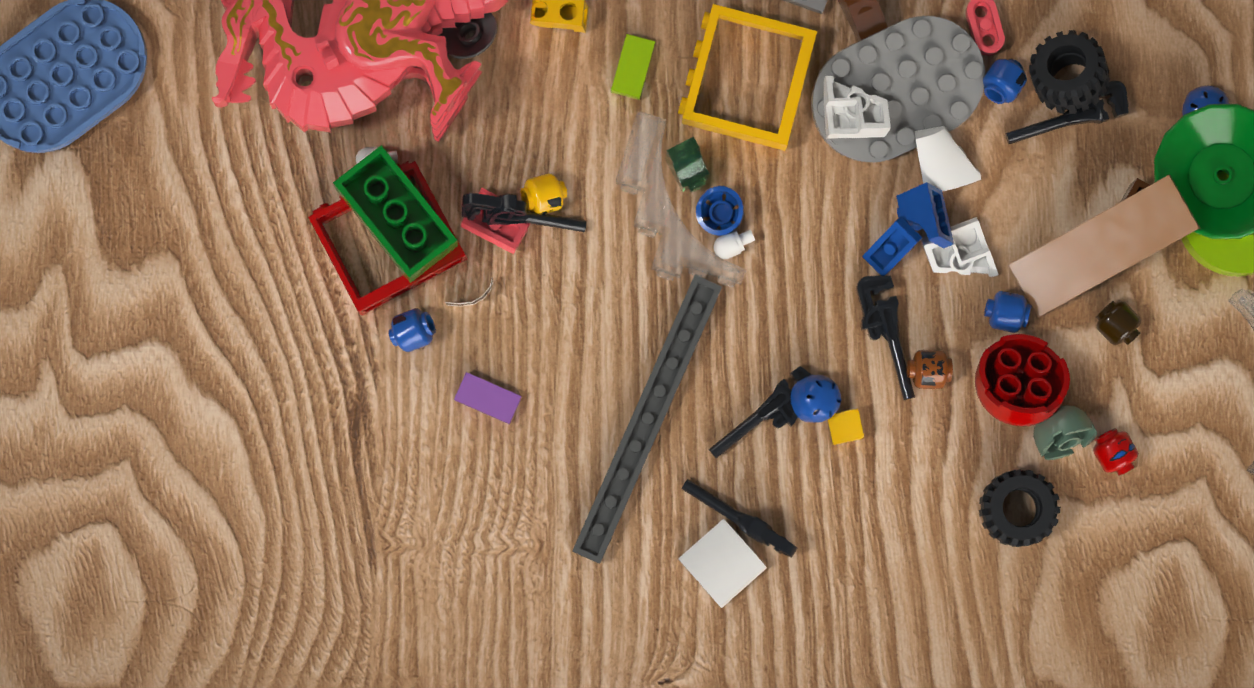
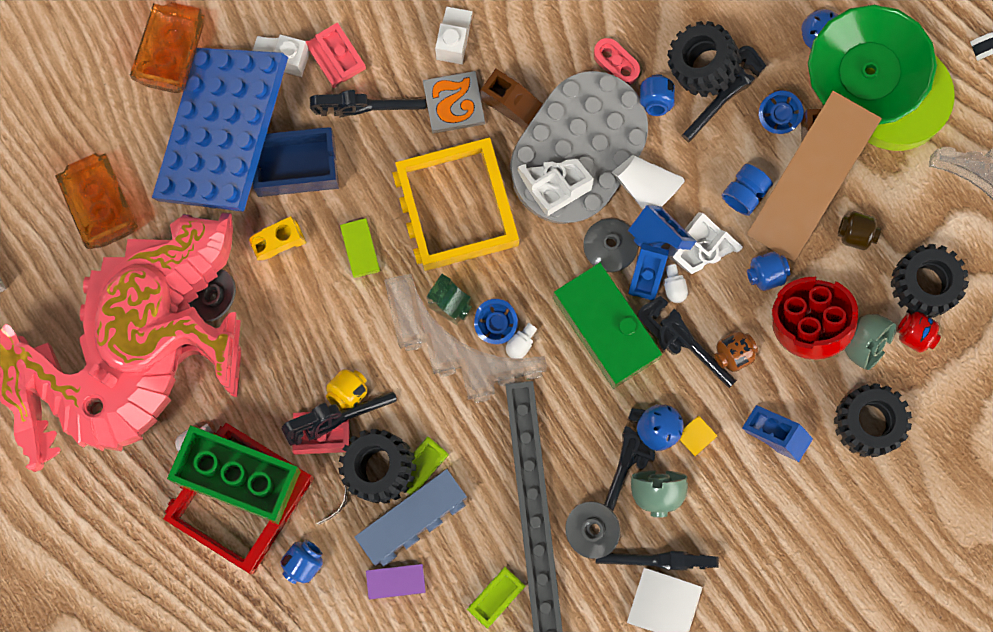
camera: 30 degrees left, 5 degrees down
(521, 261) = (356, 460): none -> black tyre
(535, 347) = (411, 517): none -> sand blue brick
(571, 305) = (427, 460): none -> lime tile
(571, 466) = (496, 597): none -> lime tile
(684, 454) = (580, 531): none -> dark grey dish
(778, 457) = (659, 491): none -> sand green cylinder
(822, 274) = (606, 325): none -> green brick
(861, 210) = (611, 258): none -> dark grey dish
(911, 274) = (675, 285): none -> white cylinder
(923, 468) = (778, 432): none -> blue arch
(1032, 223) = (749, 186): none -> blue wheel
(1115, 167) = (781, 113): none -> blue helmet
(1180, 404) = (947, 269): none -> black tyre

